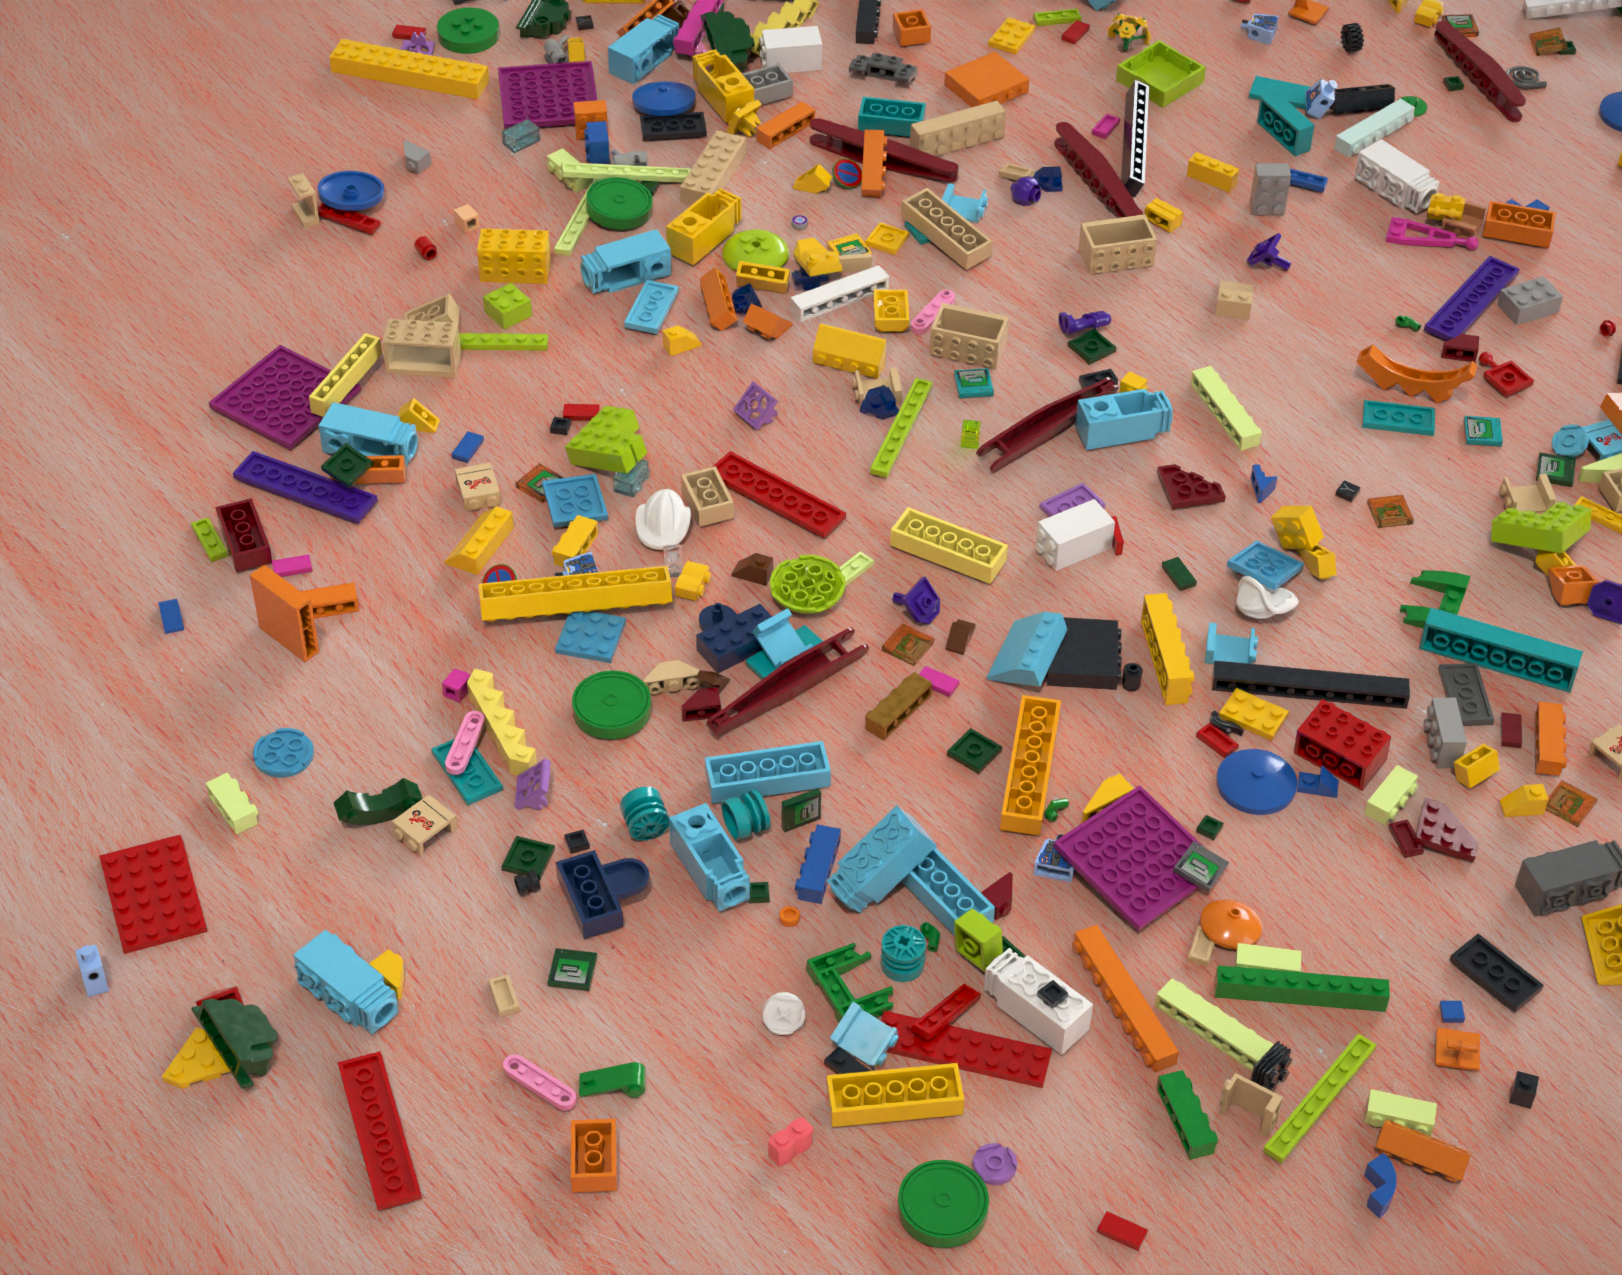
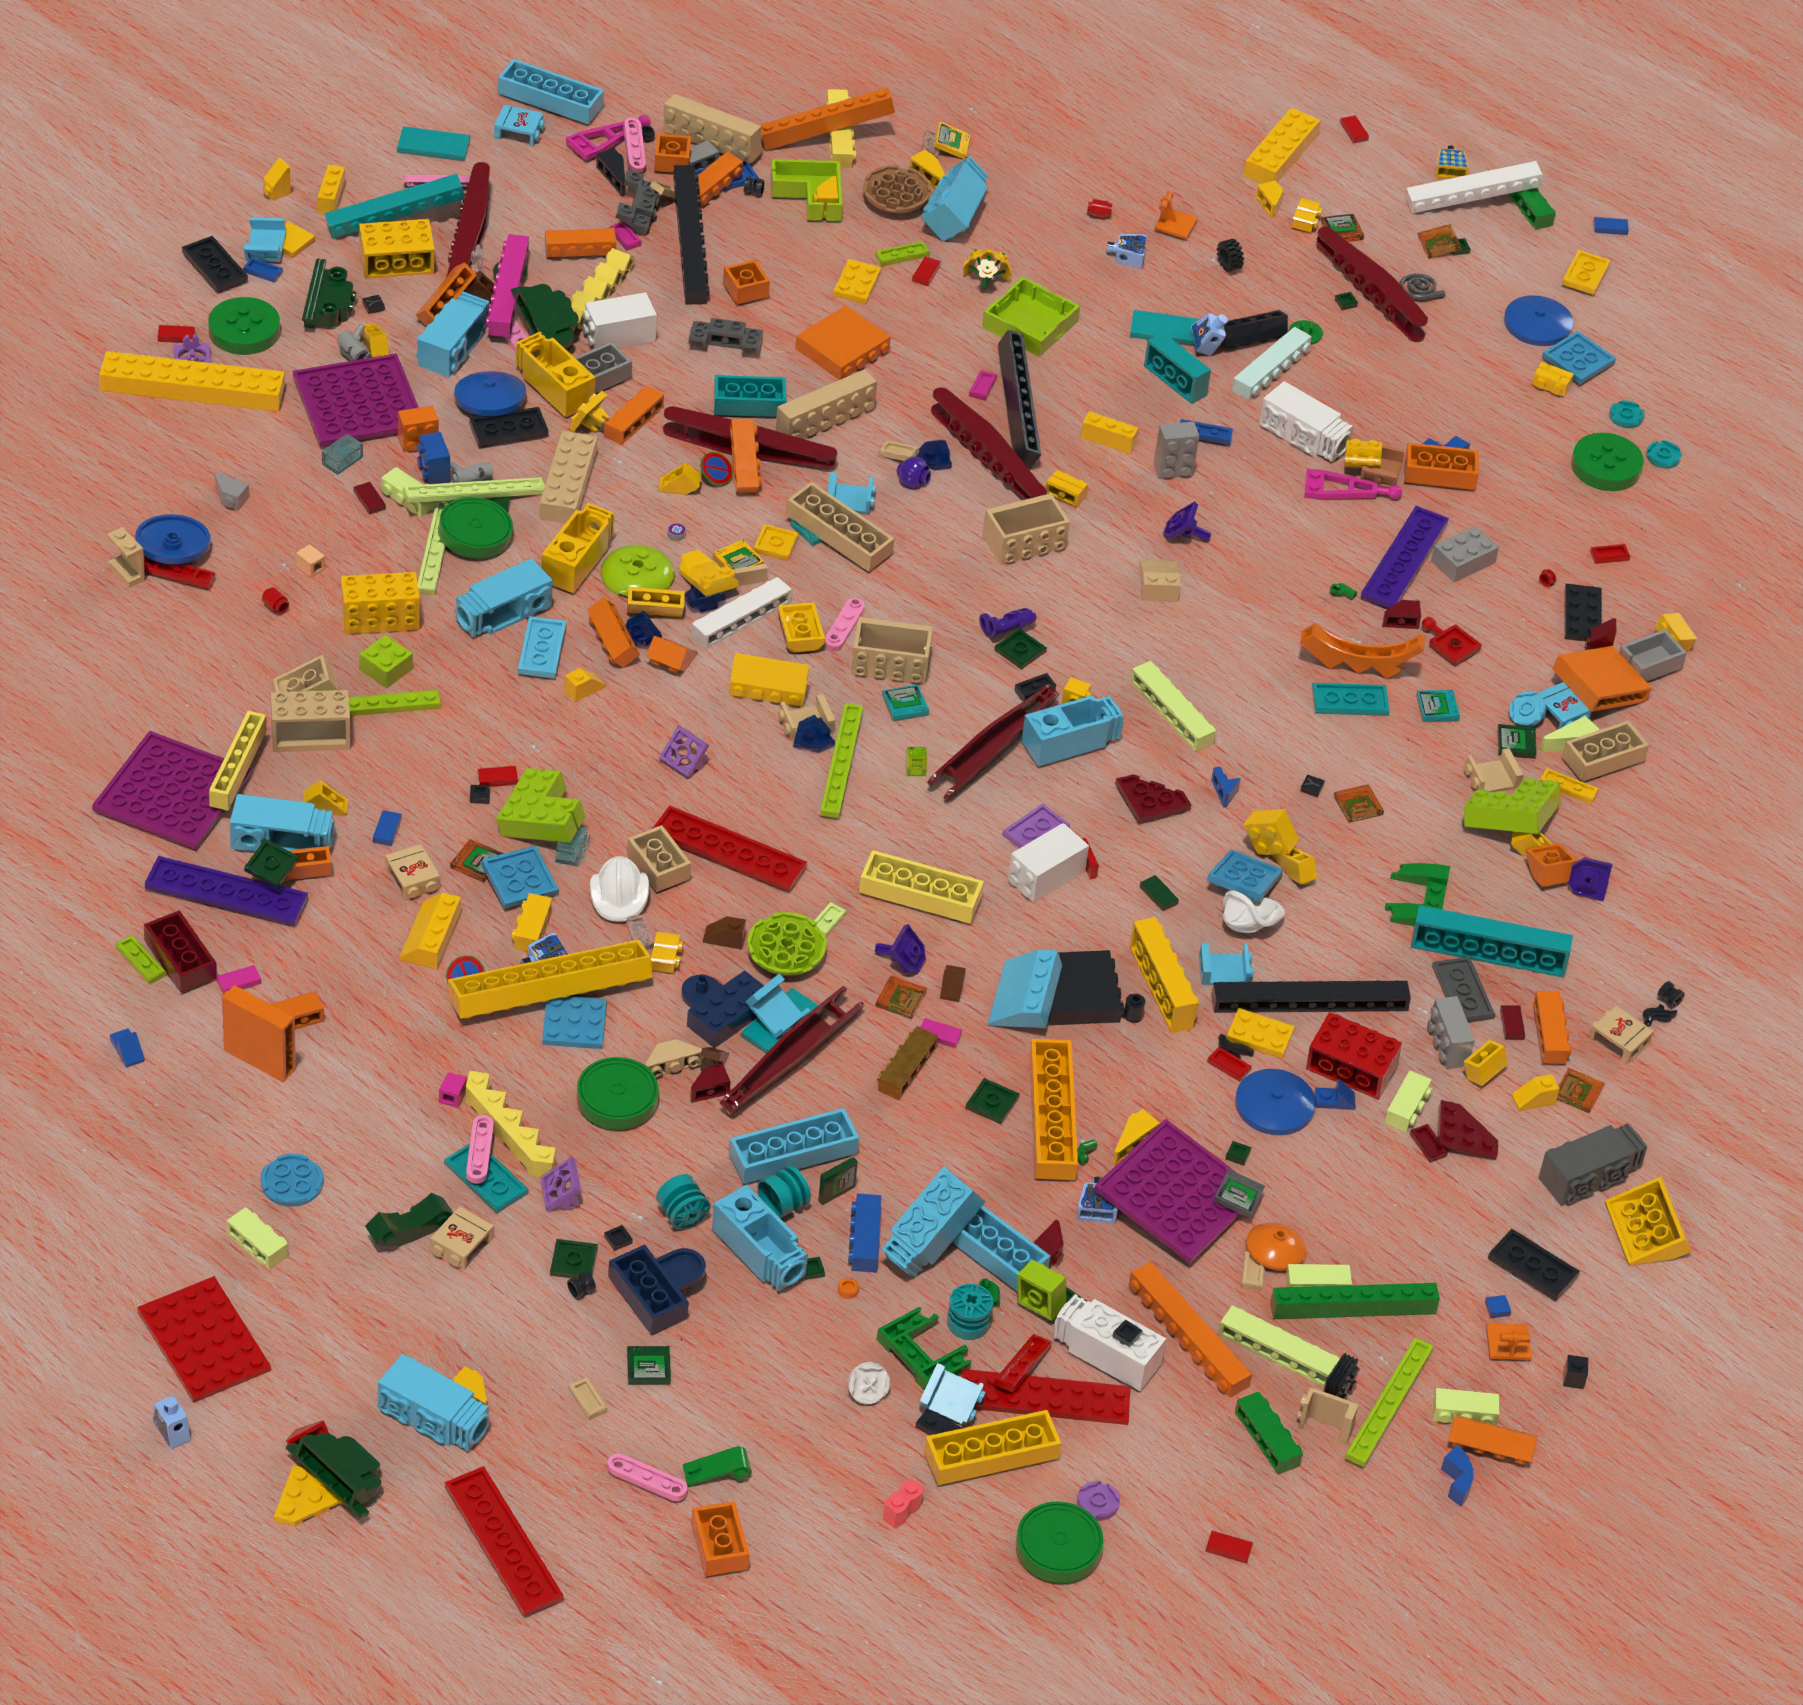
camera: 15 degrees left, 0 degrees up
(535, 173) = (369, 497): none -> dark red tile

